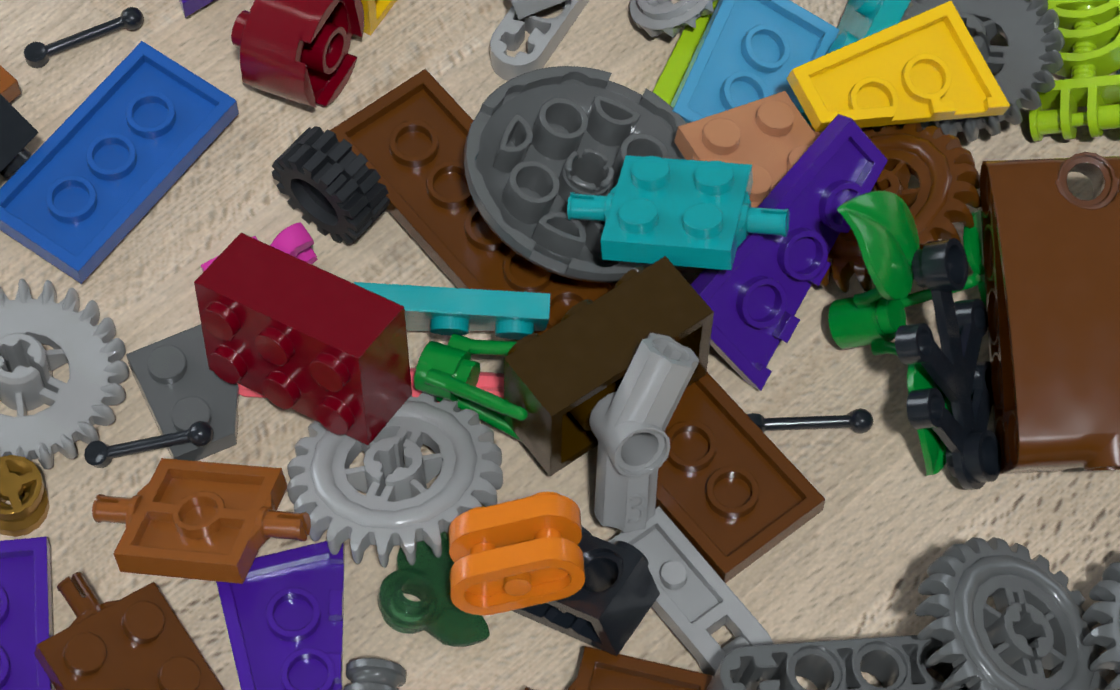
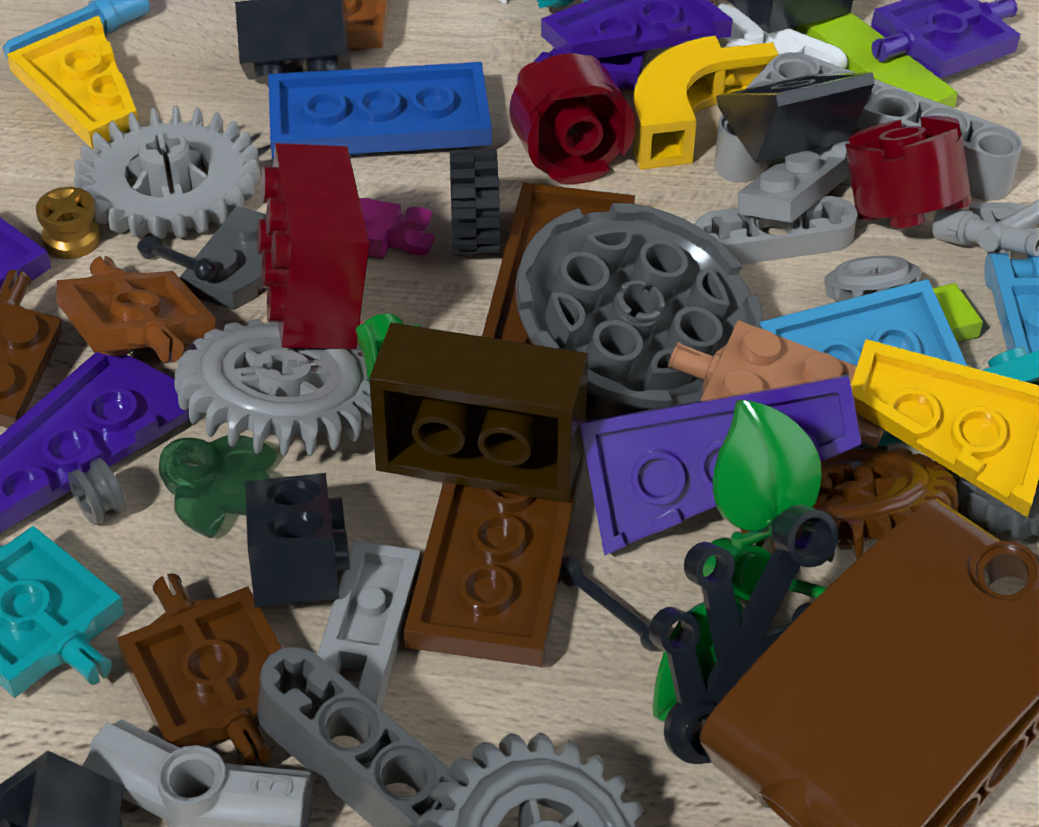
camera: 50 degrees right, 15 degrees down
(38, 54) = (423, 39): black hinge -> none
(465, 310) = (416, 292): teal wing -> none
(516, 554) = (257, 465): orange brick -> none
(633, 434) = (448, 431): light grey piece -> none
(679, 211) = (649, 350): teal plate -> none

